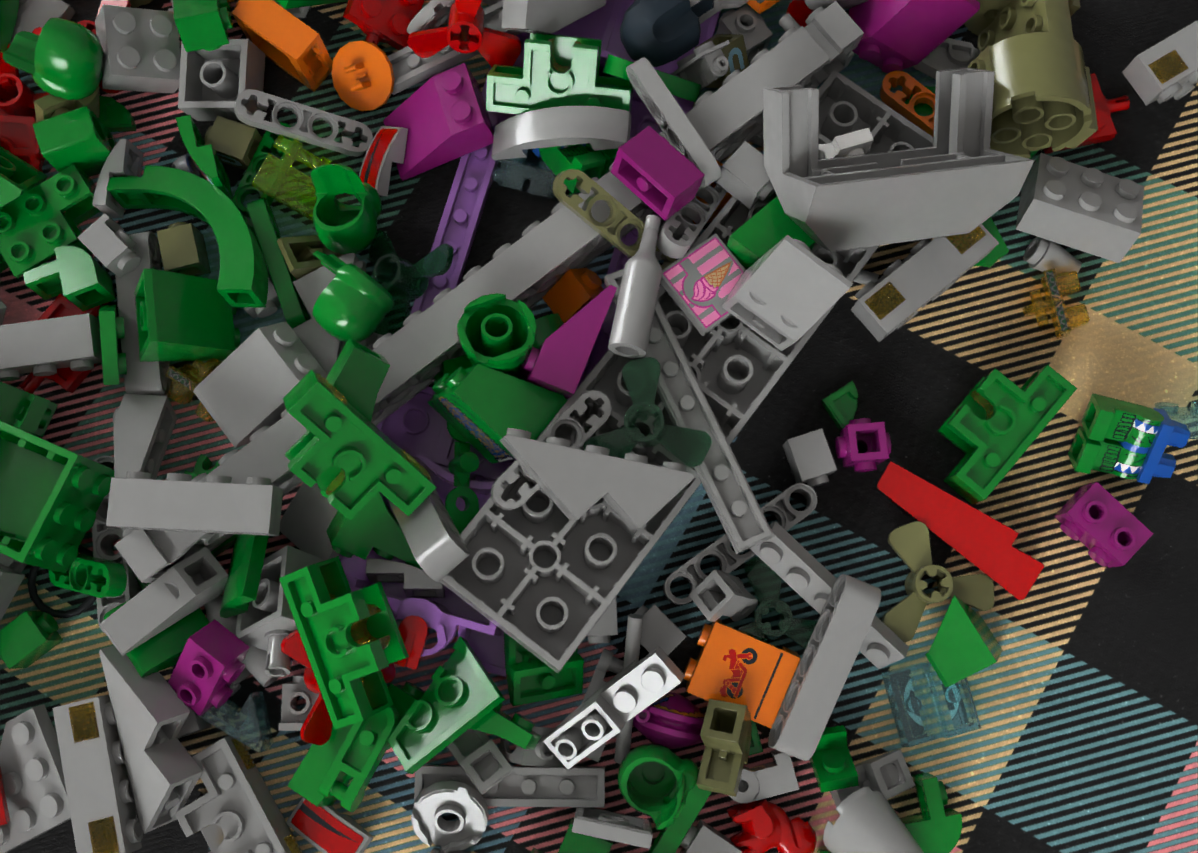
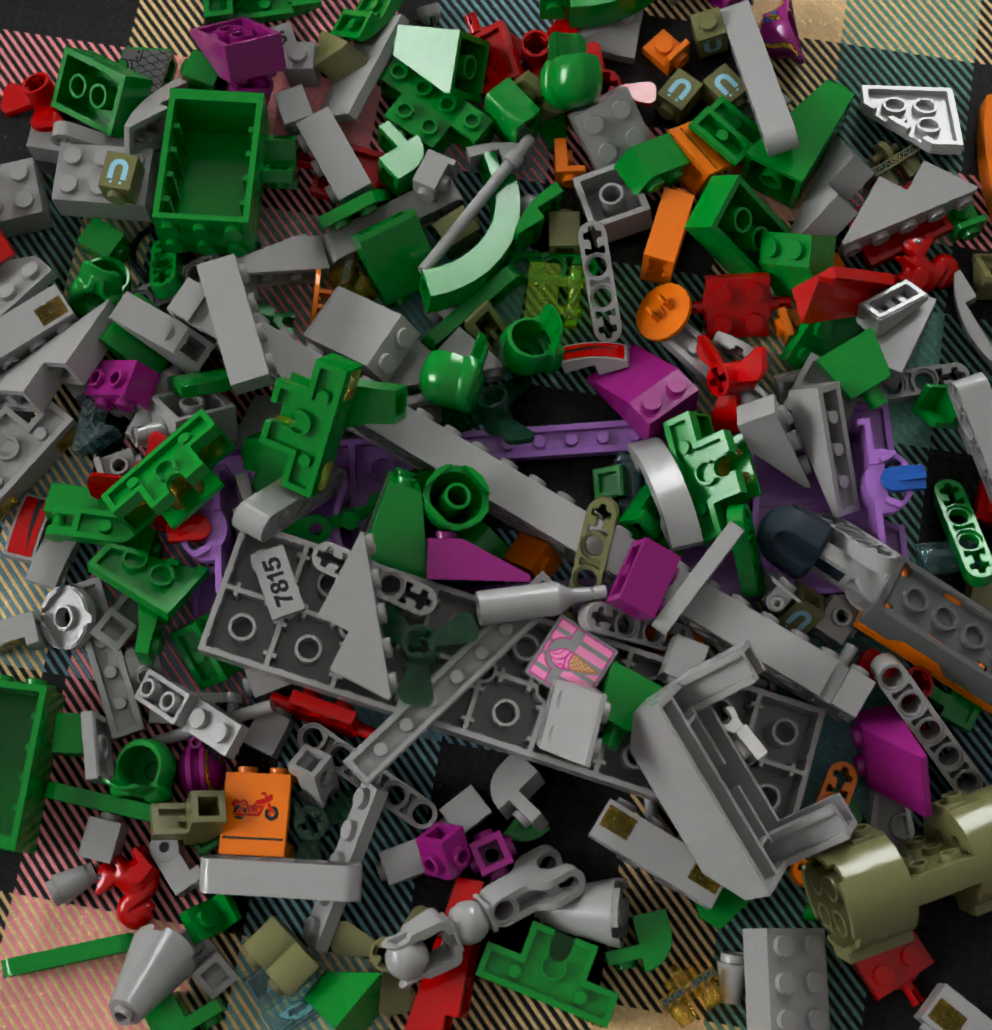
camera: 70 degrees right, 5 degrees down
(74, 659) = (99, 281): none -> green piece
(132, 163) = (510, 162): none -> light grey bar
(154, 117) = (563, 164): none -> orange bracket
(195, 422) = (318, 293): none -> orange piece
(378, 817) = (51, 562): none -> light grey slope
(517, 555) = (277, 582): none -> light grey tile
(521, 195) = (610, 482): none -> green tile
(670, 553) = (335, 717): none -> red plate
(802, 403) = (512, 787): none -> light grey brick
(840, 539) = (400, 863): none -> light grey brick
(850, 487) = (444, 850): none -> magenta brick
(902, 694) = (282, 957): none -> olive brick
(941, 525) = (520, 892): none -> light grey piece
(950, 370) = (595, 915): none -> light grey cone
(1000, 323) = (652, 939): none -> green brick

